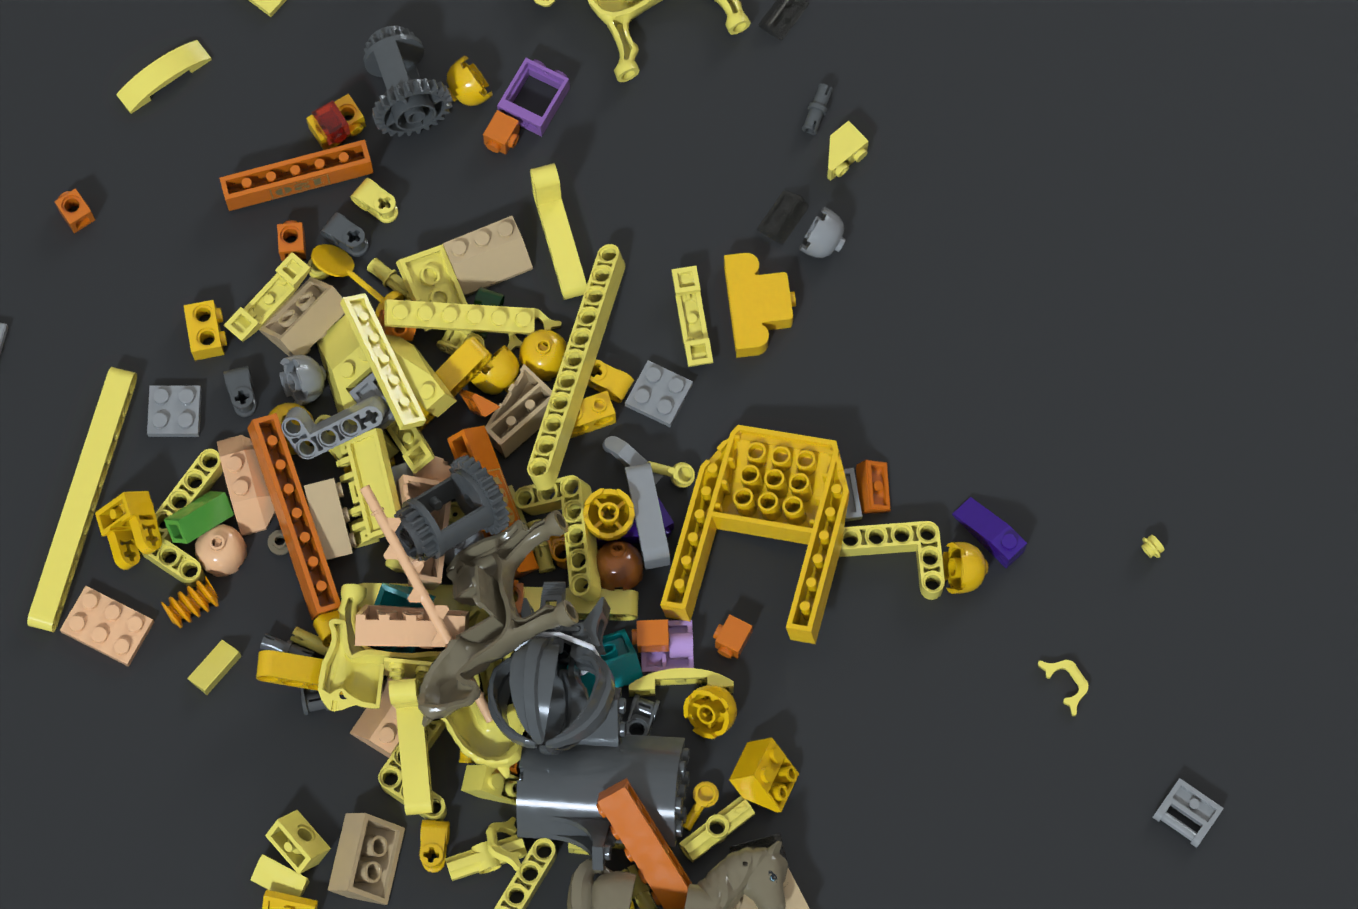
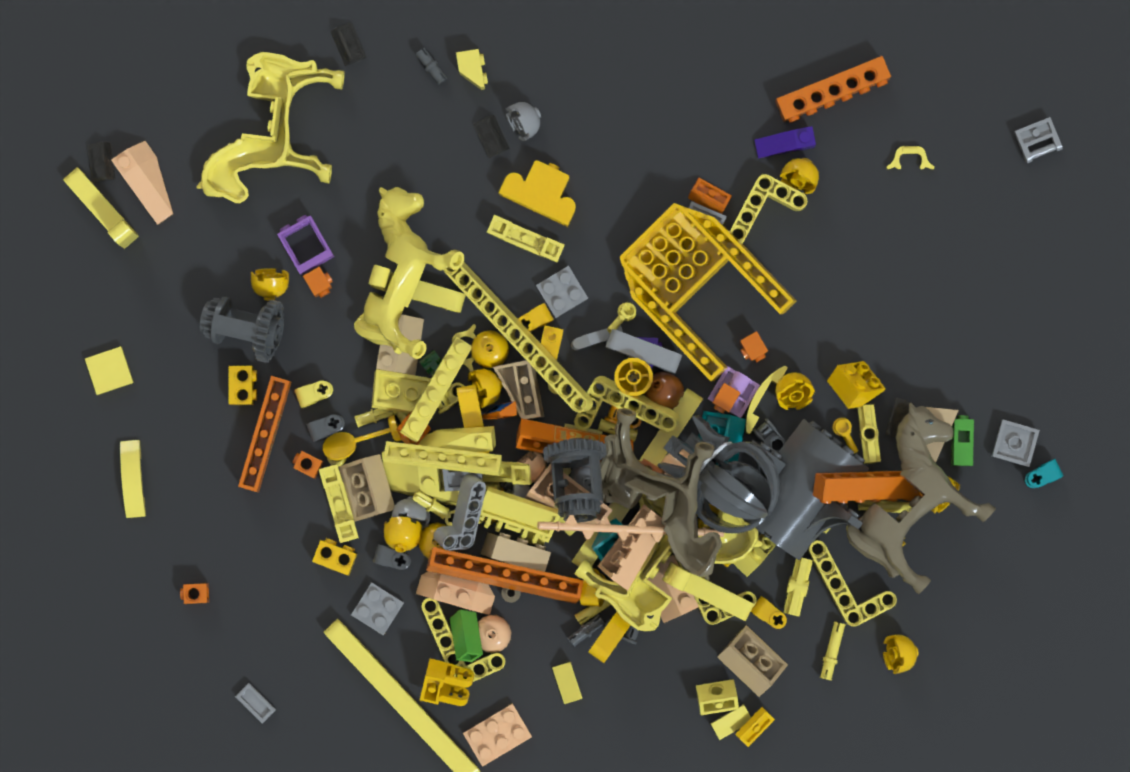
camera: 60 degrees left, 15 degrees up
(191, 603) = (518, 673): light orange piece -> none
(273, 380) = (402, 533): none -> yellow cylinder
(326, 389) = (431, 504): none -> light yellow axle
(331, 123) = (246, 390): clear red brick -> none
(495, 849) = (799, 579): light yellow helmet -> none
(563, 208) = (411, 254): none -> light yellow animal
(1081, 532) = (876, 67): none -> orange brick
(1152, 546) = (859, 48): light yellow plate -> none

